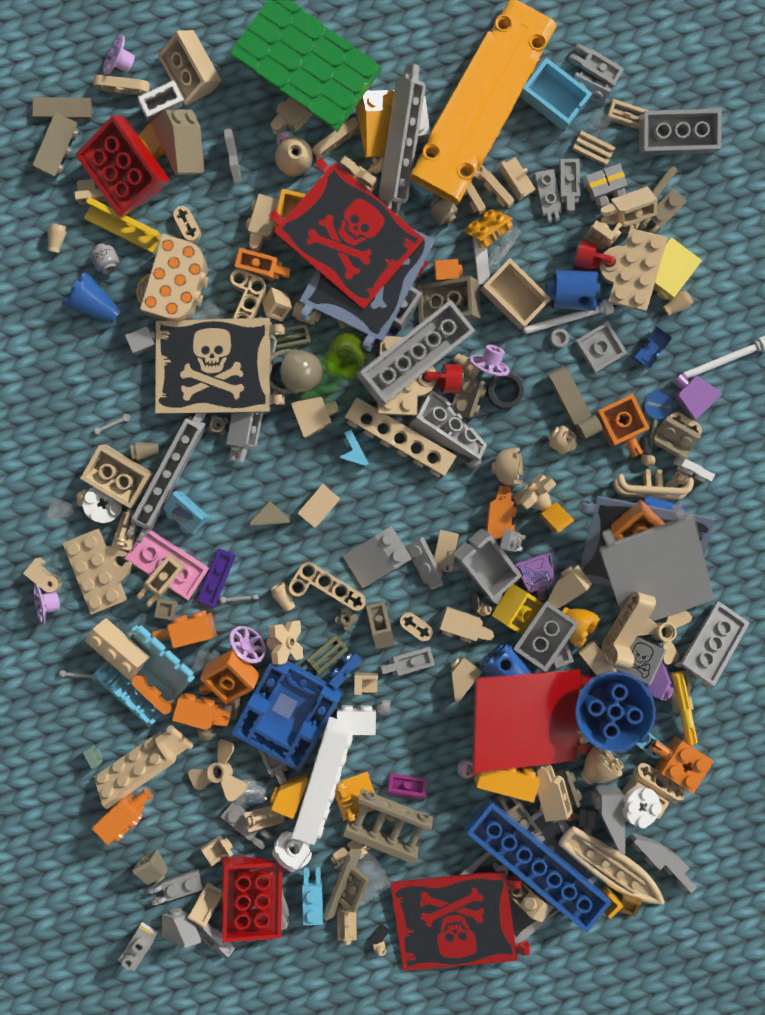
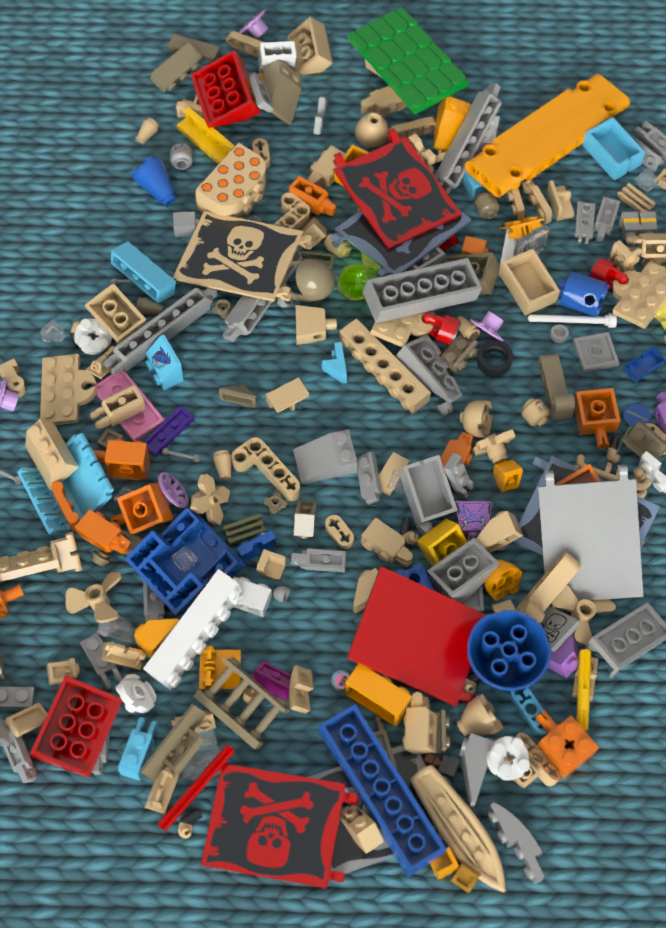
camera: 15 degrees right, 25 degrees down
(122, 414) = (143, 272): none -> medium azure brick
(161, 158) = (261, 93): none -> light grey hinge
(376, 911) = (196, 787): none -> red axle
(433, 794) = (300, 685): none -> tan slope

